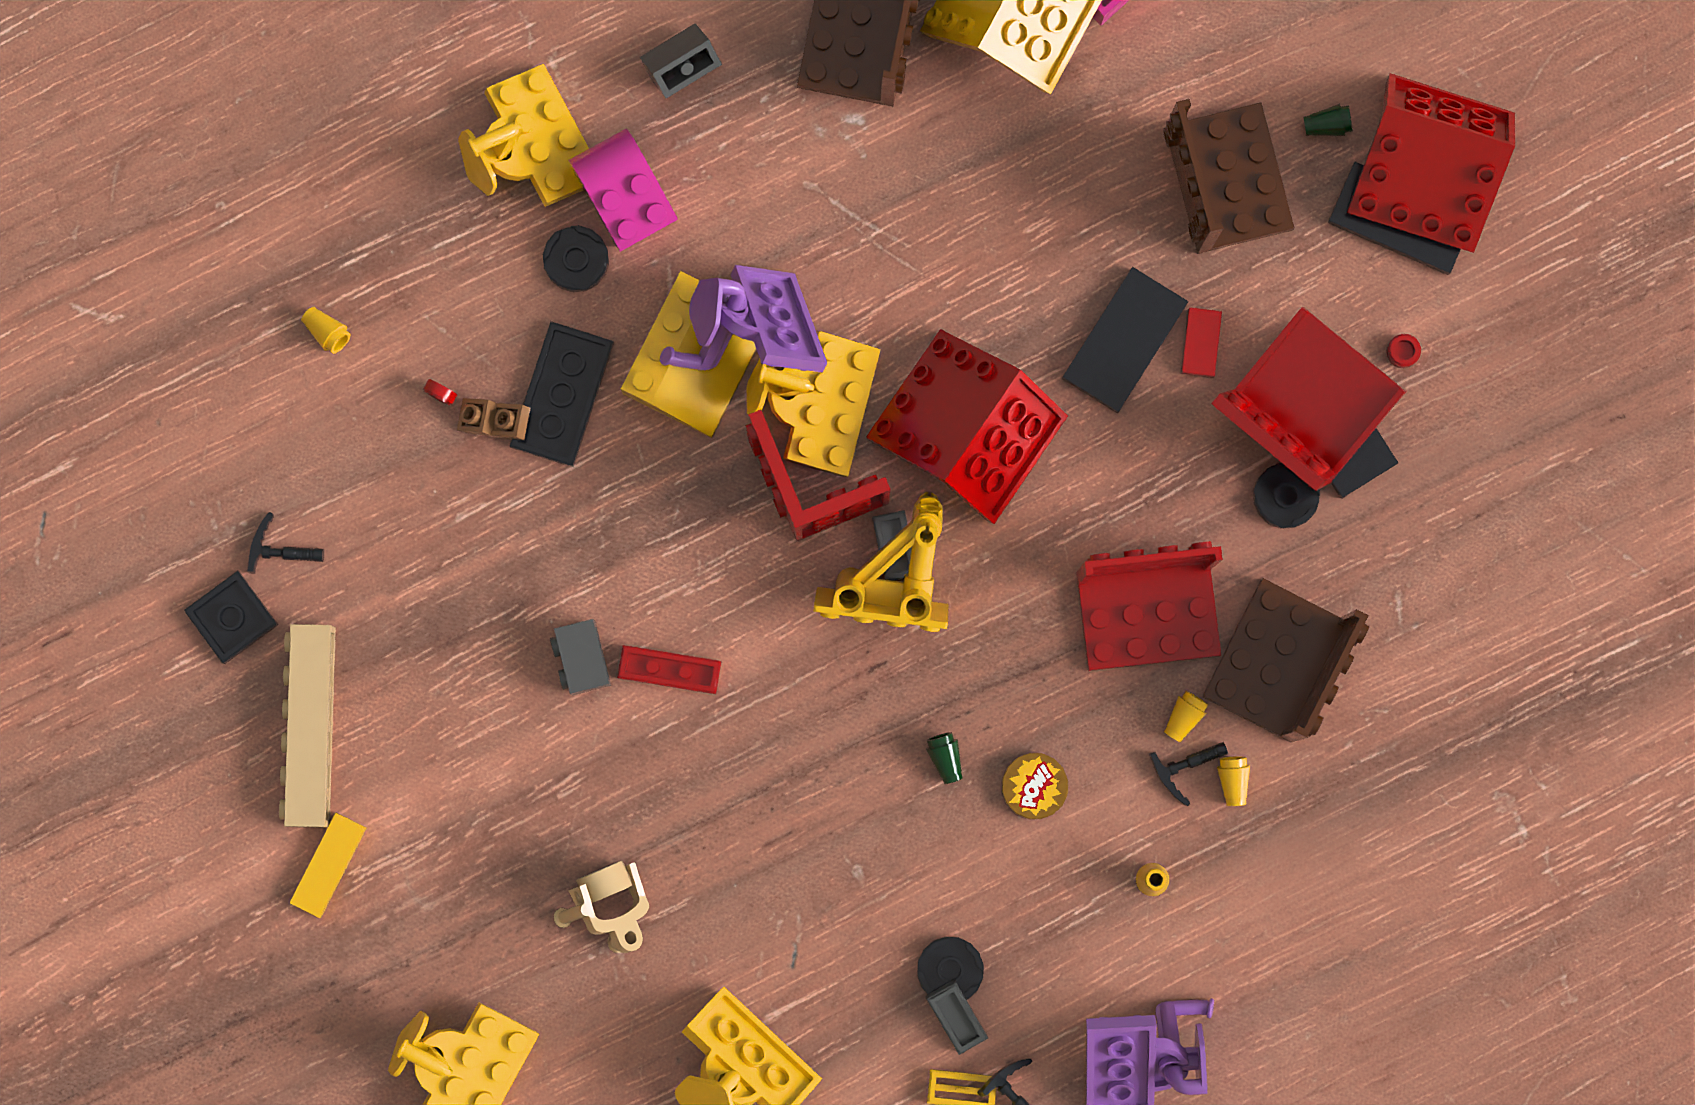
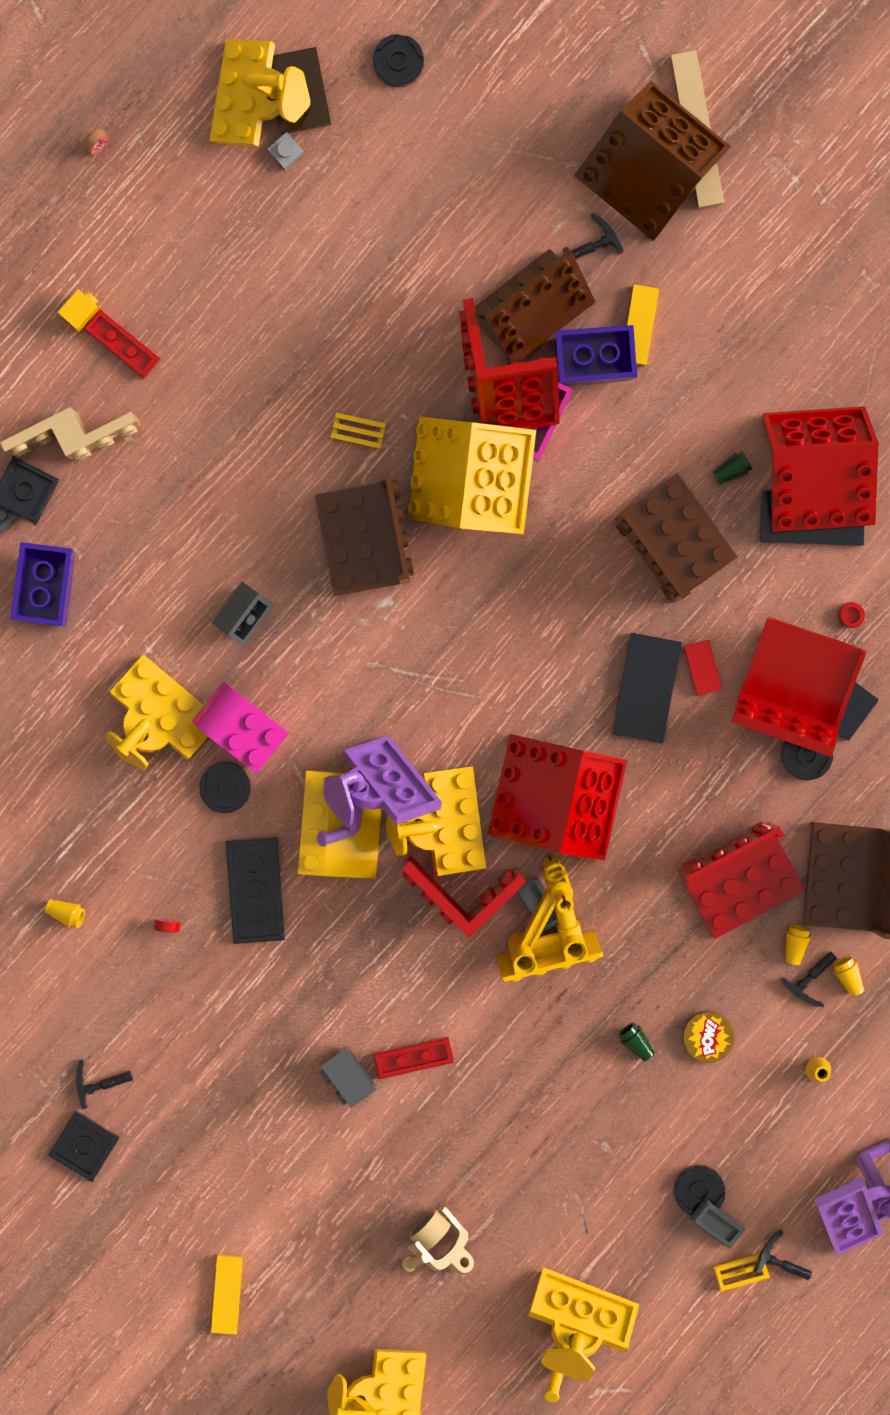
camera: 20 degrees left, 5 degrees up
(308, 726) = (173, 1203): tan brick -> none
(493, 419) = (213, 929): medium nougat slope -> none

